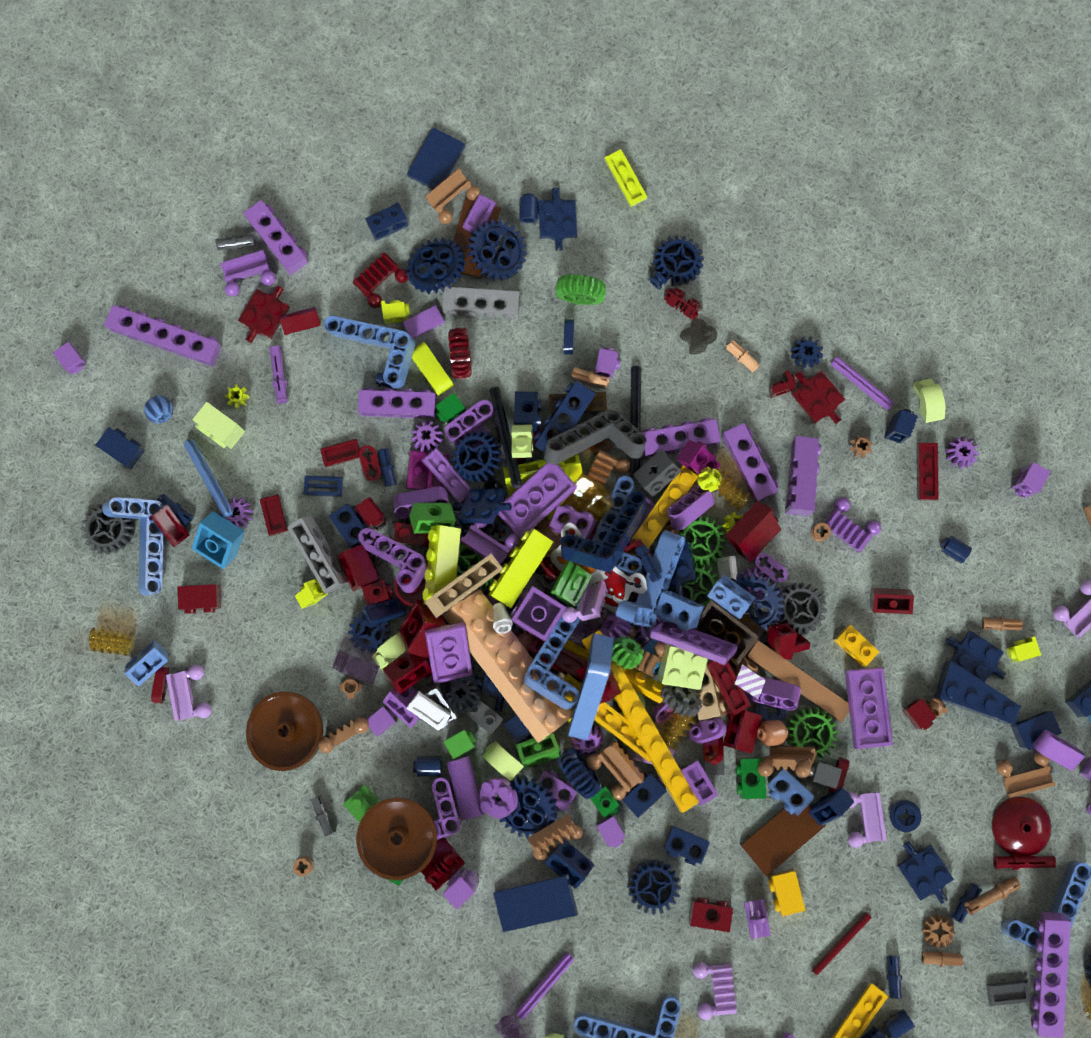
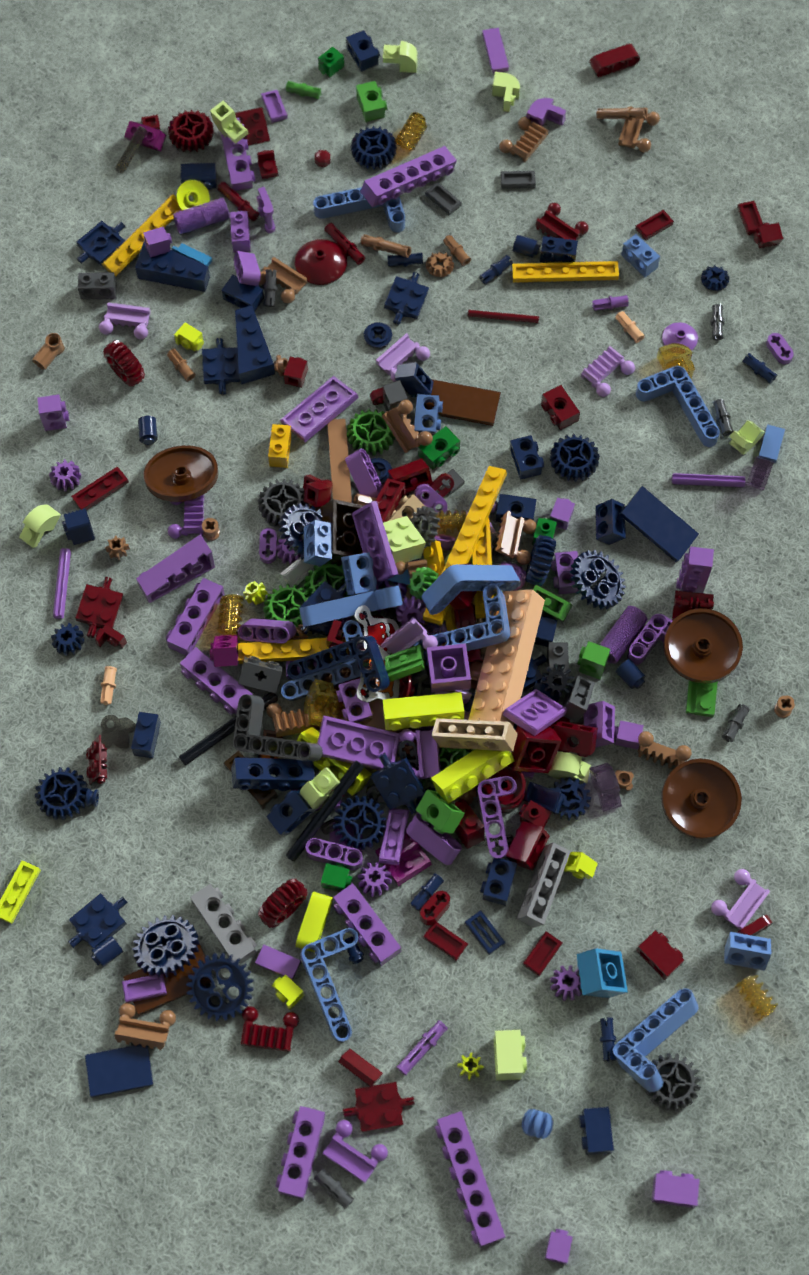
camera: 130 degrees left, 15 degrees down
(37, 468) = (675, 1189): none -> medium lavender brick
(170, 525) = (624, 1027): dark red tile -> none
(208, 478) = (558, 1028): medium blue axle -> none
(371, 514) = (476, 866): dark red brick -> none
(387, 221) = (211, 1063): dark blue brick -> none
(428, 710) = (590, 696): white tile -> none
(501, 619) = (476, 690): white cone -> none
(502, 760) = (579, 622): yellowish green brick -> none
(506, 793) = (618, 598): medium lavender plate -> none
(554, 833) = (588, 540): medium nougat gear -> none
(568, 336) = (197, 831): dark blue beam -> none
(580, 289) = (150, 847): bright green gear -> none
(590, 377) = (219, 788): light nougat axle -> none
(607, 362) = (196, 784): medium lavender brick -> none
(648, 563) = (341, 616): dark blue axle -> none
(677, 353) = (146, 735): none -> dark blue brick
(699, 782) = (473, 477): medium lavender brick -> none
(709, 479) = (235, 628): neon yellow gear -> none
(750, 681) = (370, 490): sticker -> none
(754, 531) = (250, 571): dark red brick -> none
(757, 918) = (535, 376): medium lavender hips -> none
(772, 733) = (394, 454): nougat head -> none
(786, 892) = (499, 371): yellow brick -> none
(890, 544) = (181, 473): none -> reddish brown dish
(892, 601) = (225, 444): dark red brick -> none
(1023, 757) = (270, 288): none -> dark grey pin
(1036, 573) = (123, 363): none -> dark red gear

